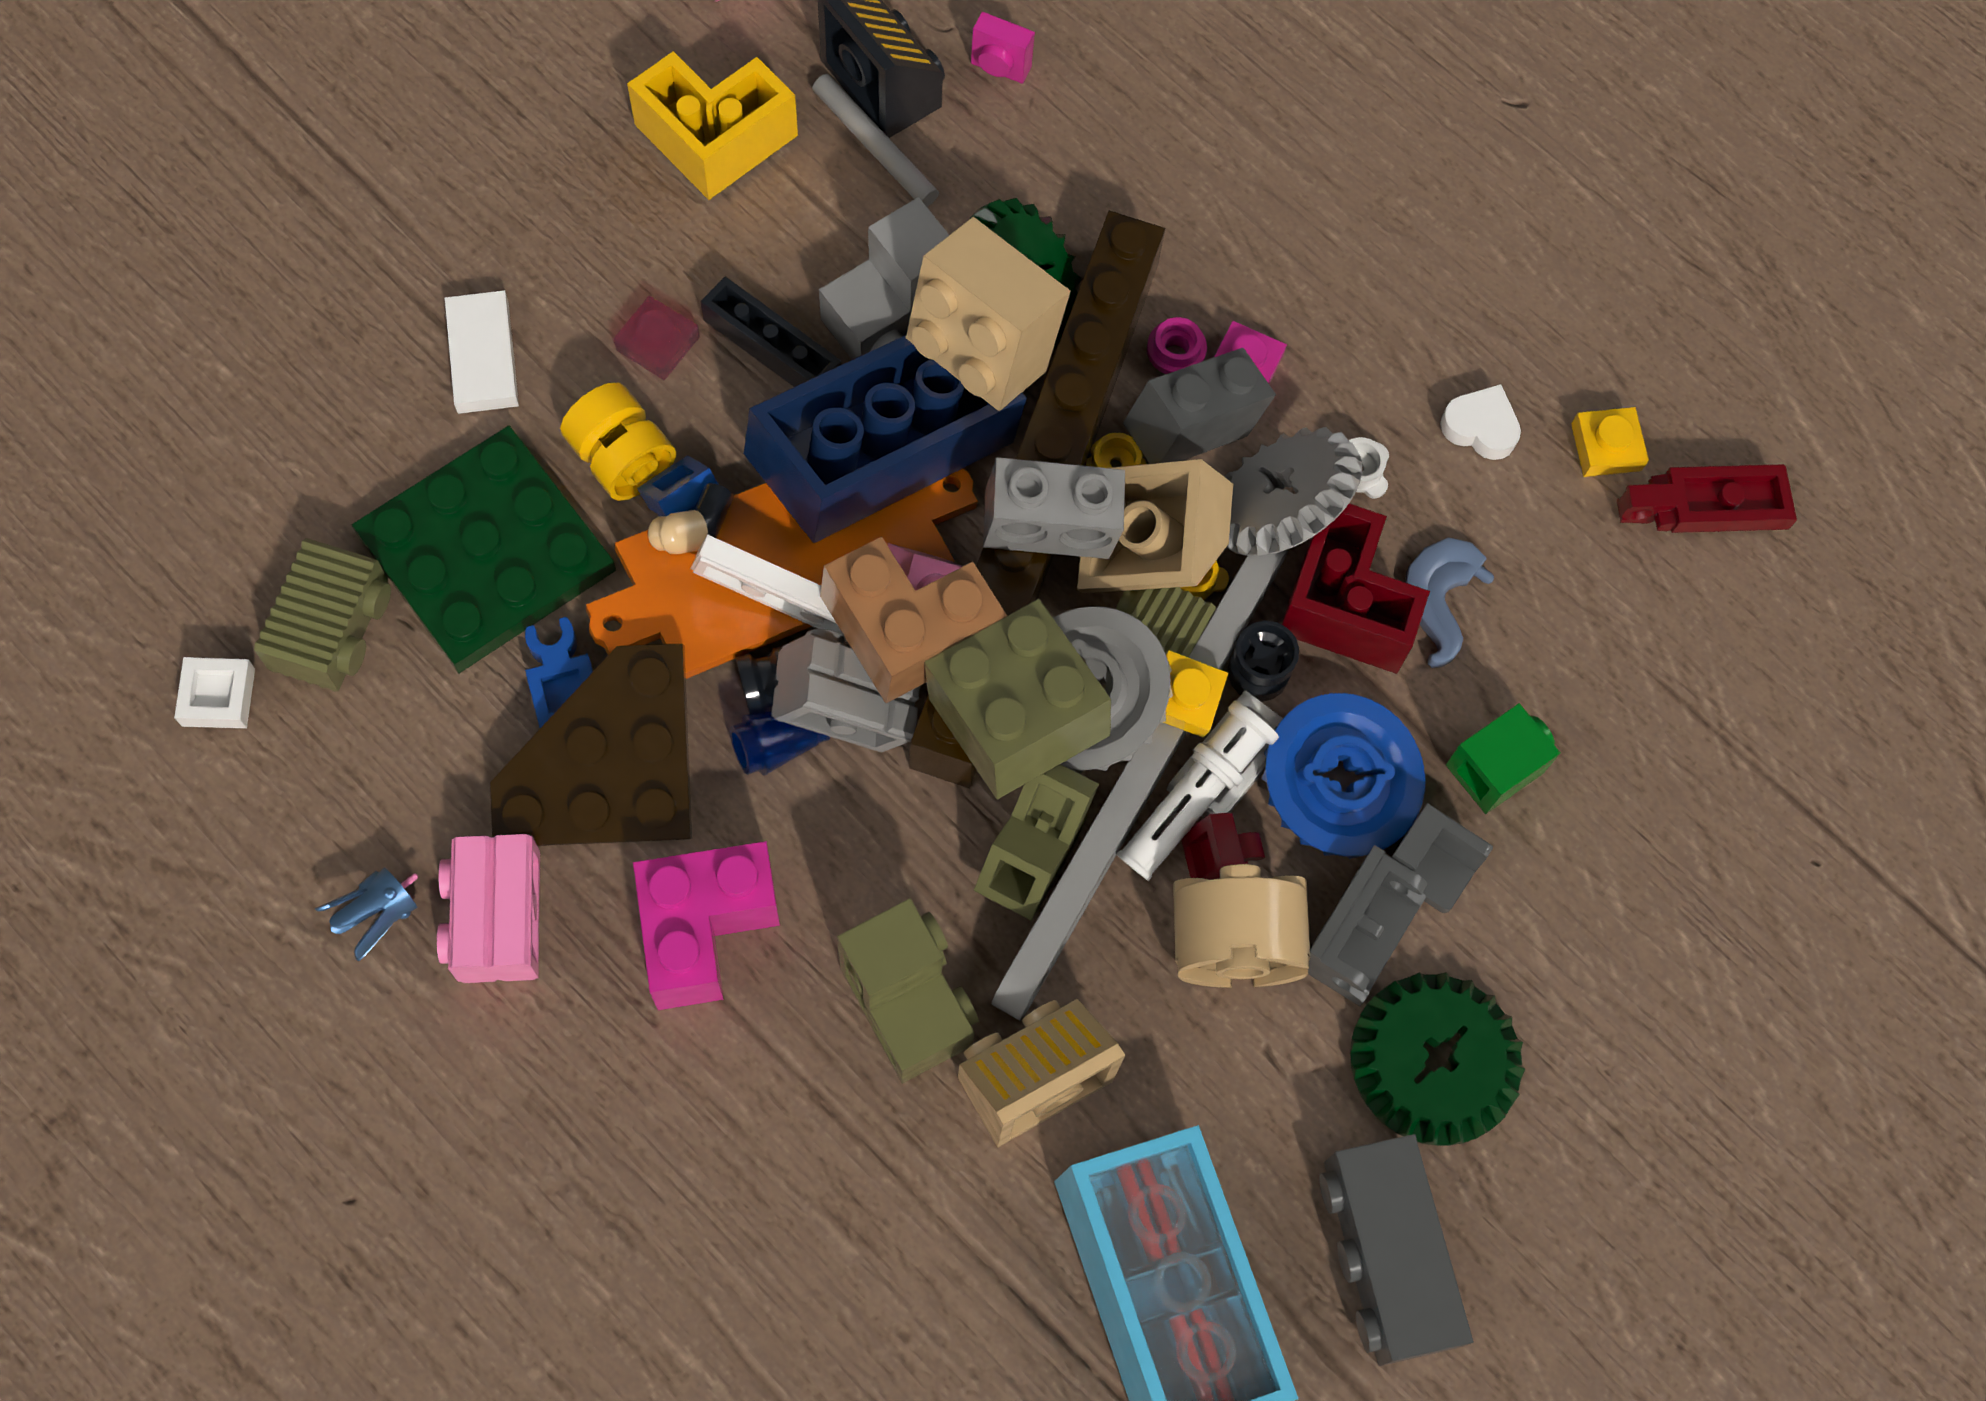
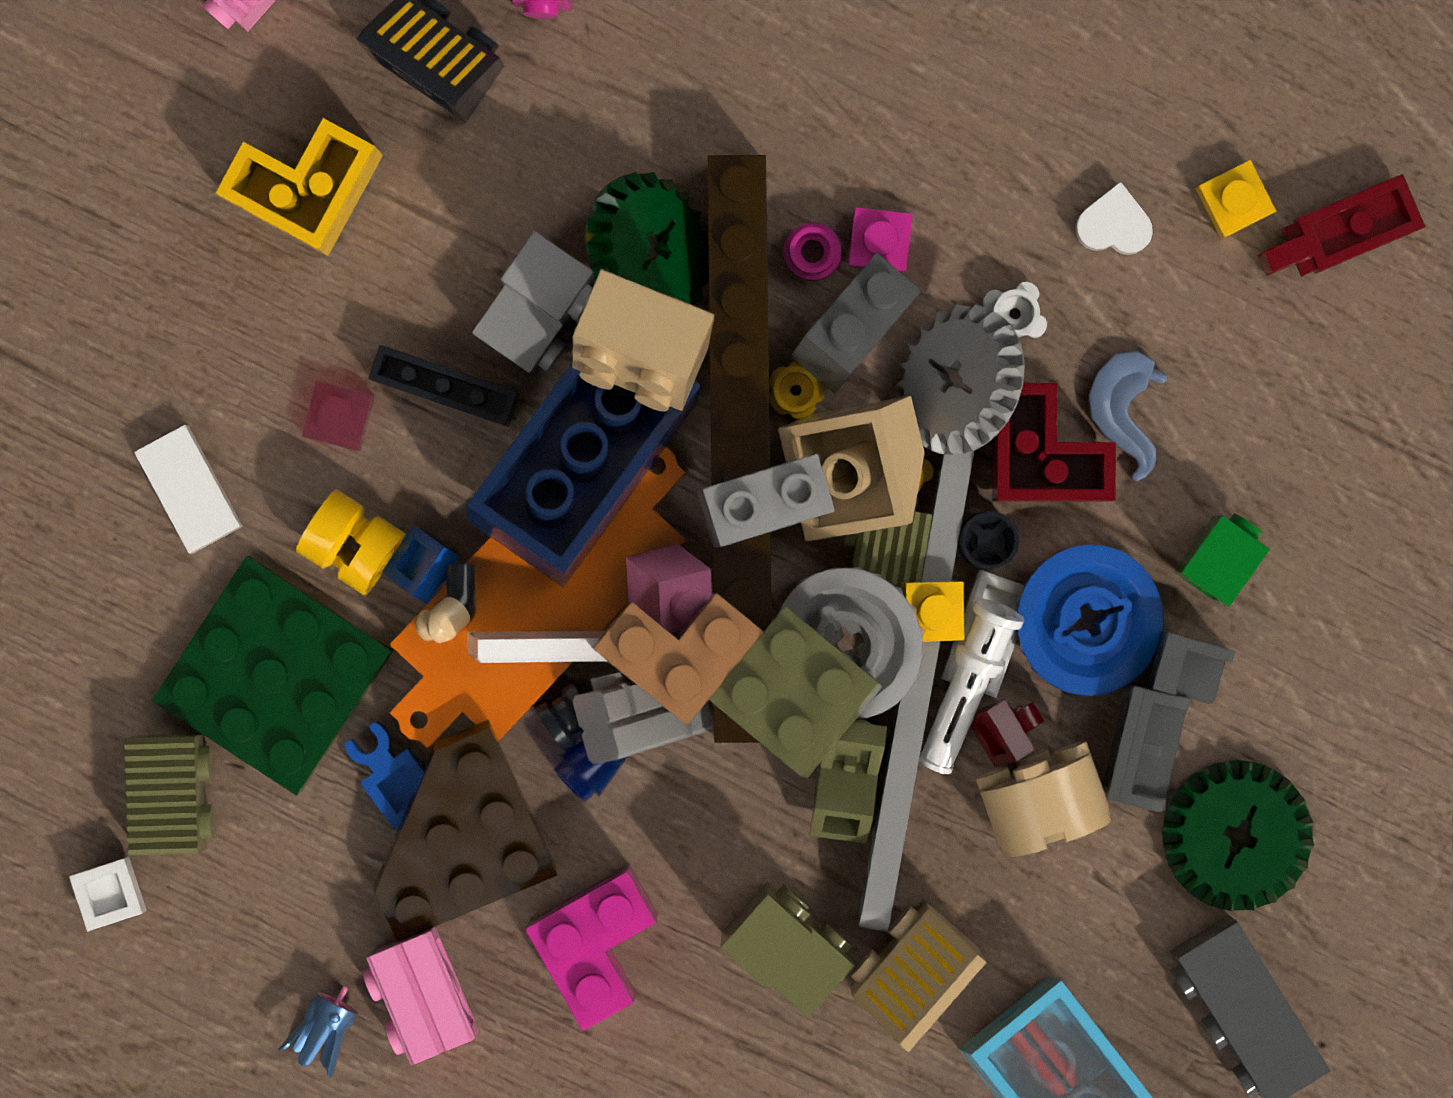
camera: 10 degrees left, 20 degrees up
(874, 139) = (456, 132): light grey bar -> none

